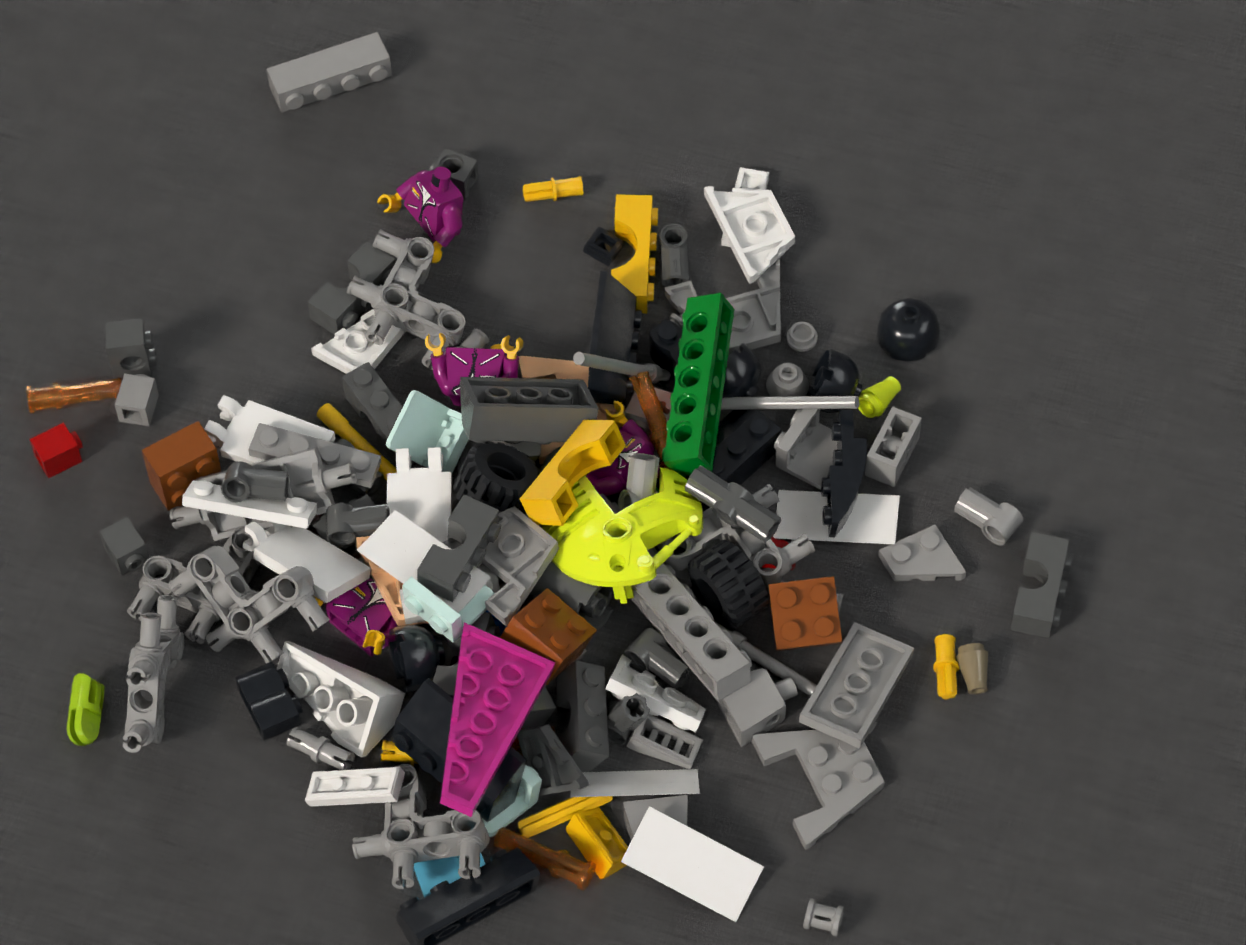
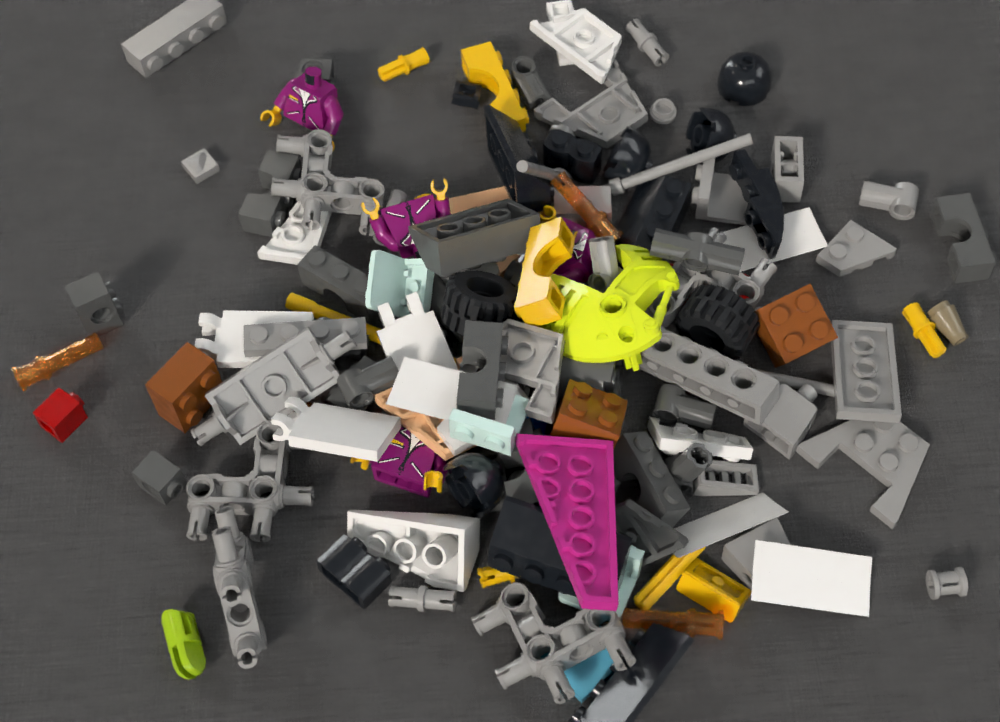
camera: 20 degrees left, 0 degrees up
(136, 399) = (117, 346): light grey brick -> none
(209, 497) = (265, 399): white plate -> none
(234, 598) = (285, 487): light grey pin -> none
(256, 483) = (267, 378): dark grey piece -> none
(295, 233) = (200, 166): none -> light grey tile
(355, 786) = (473, 621): white tile -> none
(698, 384) = (612, 168): green brick -> none
(787, 381) = (669, 147): light grey cone -> none
(825, 251) = (647, 42): none -> light grey pin
(876, 398) = (754, 127): neon yellow cone -> none

